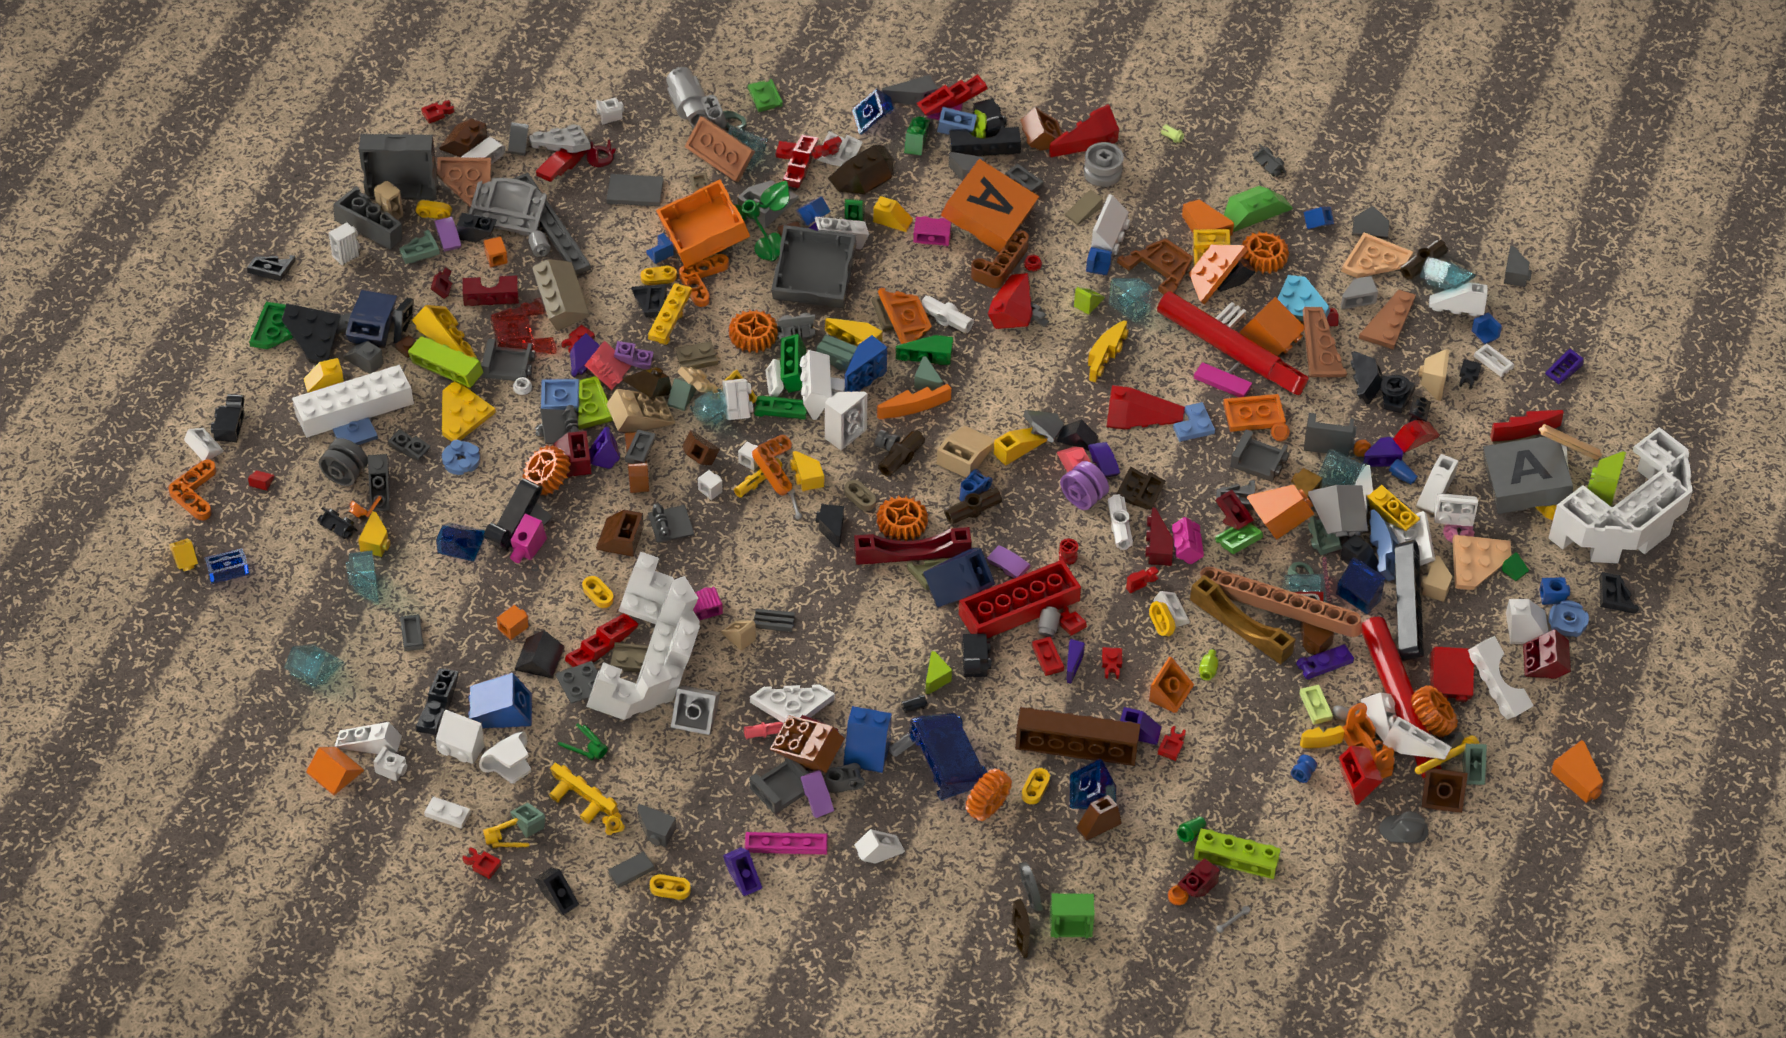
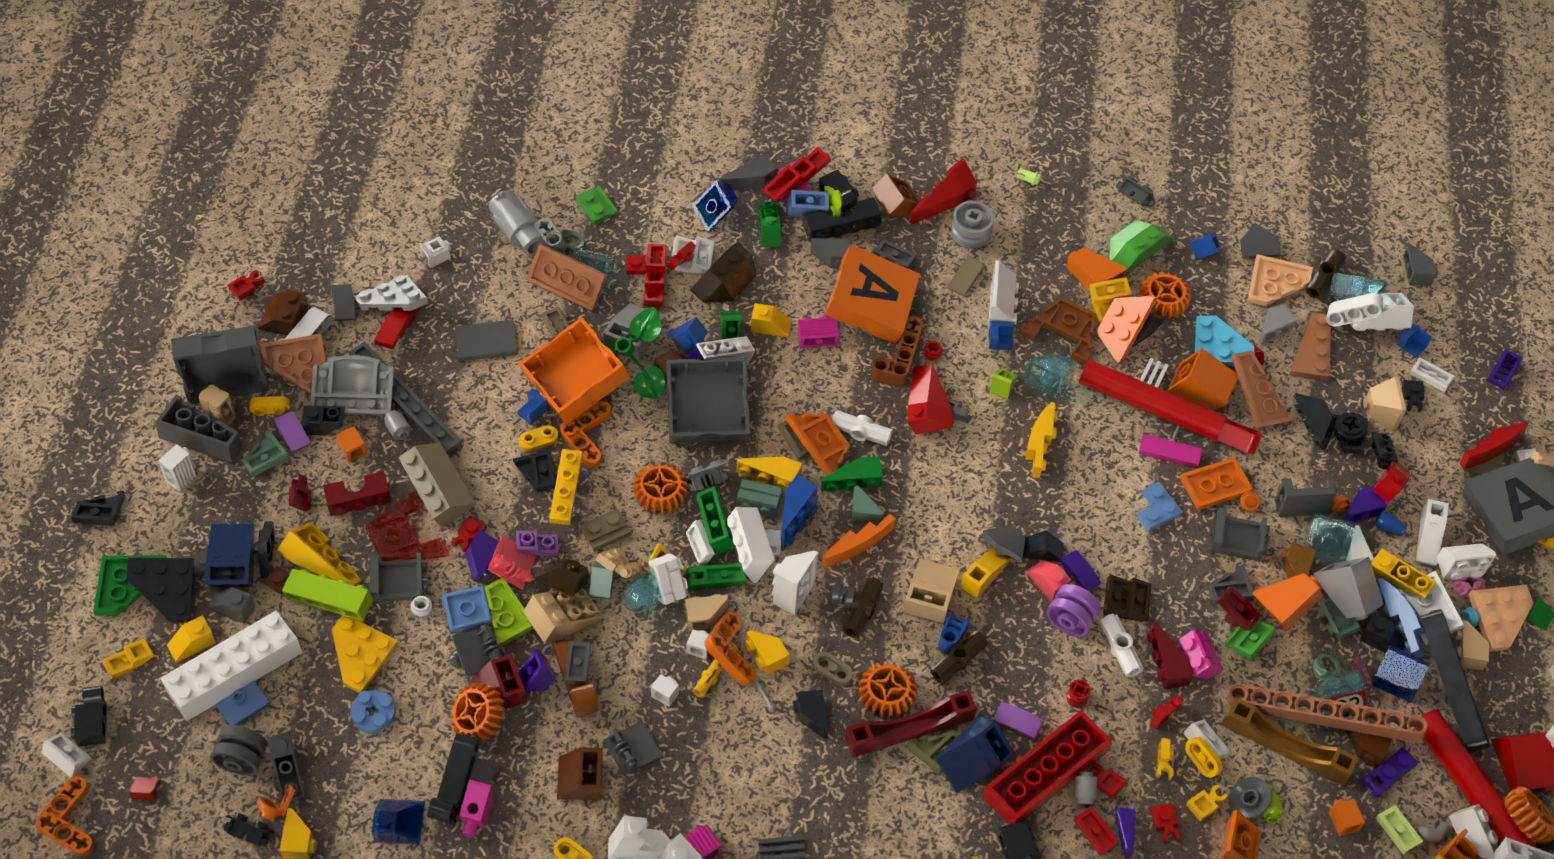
camera: 15 degrees left, 5 degrees up
(273, 382) = (133, 656): none -> yellow slope
(409, 446) = (308, 708): dark grey slope -> none
(594, 160) = (431, 309): dark red piece -> none
(699, 449) = (641, 647): reddish brown slope -> none
(762, 430) = (704, 611): none -> tan slope
(1127, 611) = (1164, 755): none -> yellow plate
(1136, 408) = (1096, 503): red wedge -> none
(1151, 654) = (1205, 804): none -> yellow plate
(1192, 654) = (1245, 791): none -> dark grey dish
(1272, 686) = (1346, 816): none -> orange brick
(1427, 288) = (1362, 306): none -> white beam
(1447, 556) = (1470, 615): none -> medium azure plate

